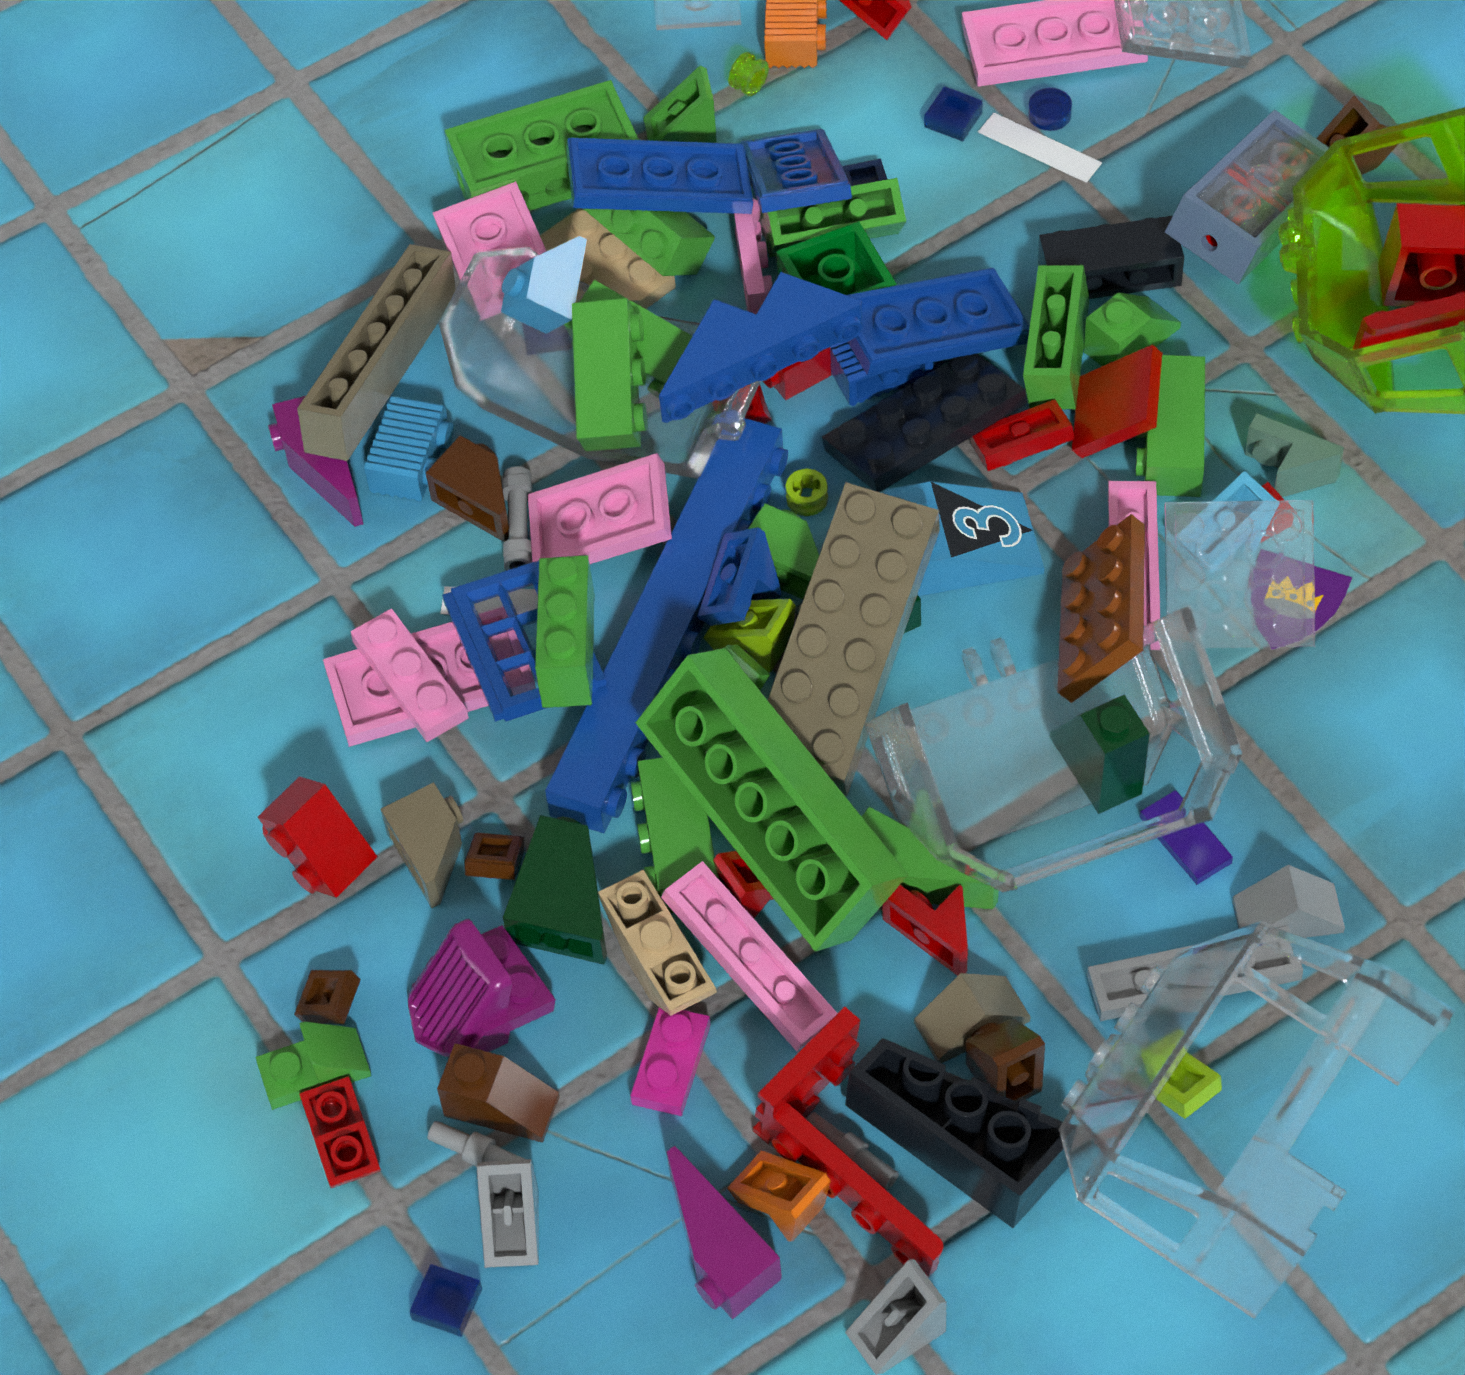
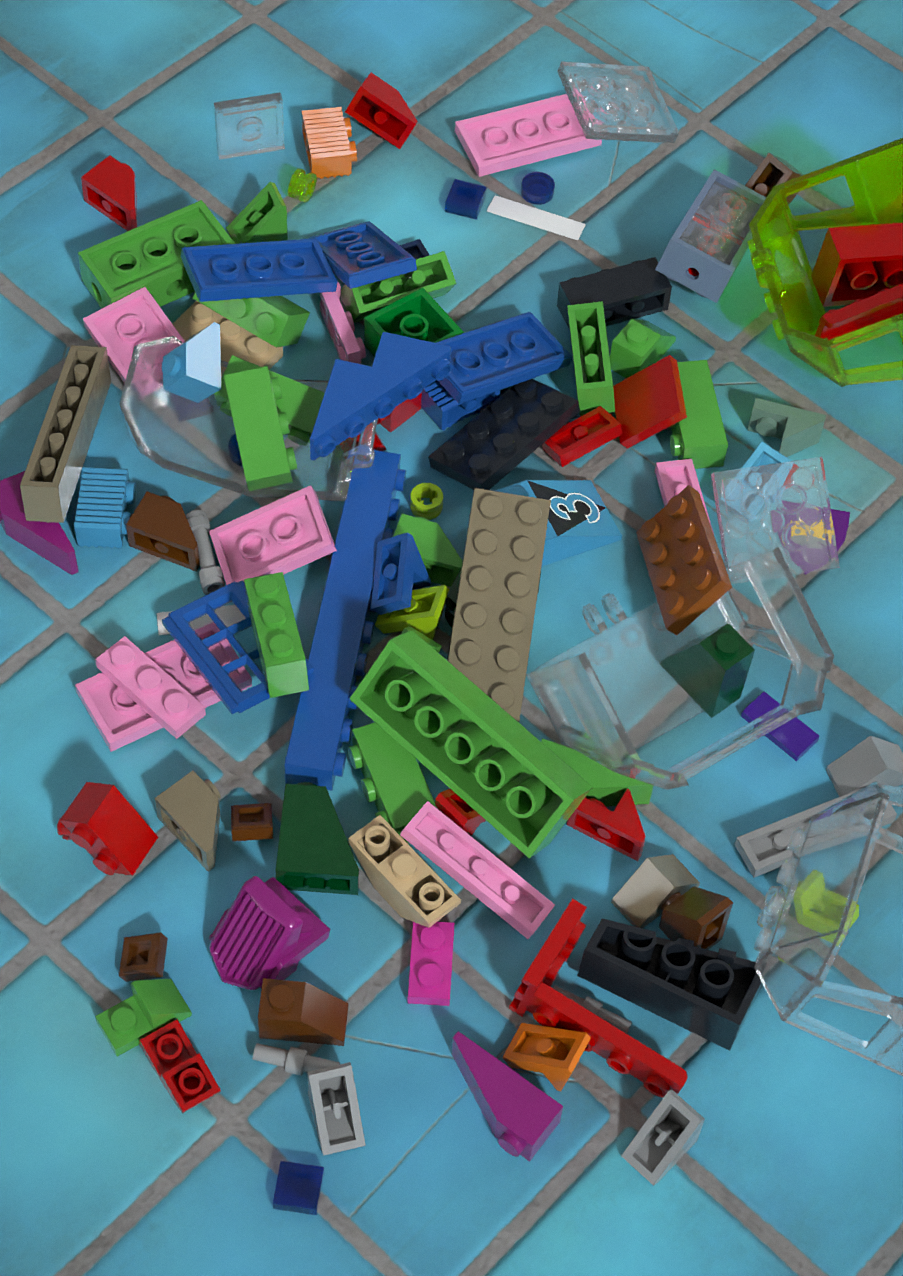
camera: 20 degrees left, 0 degrees up
(512, 56) = (112, 191): none -> red slope

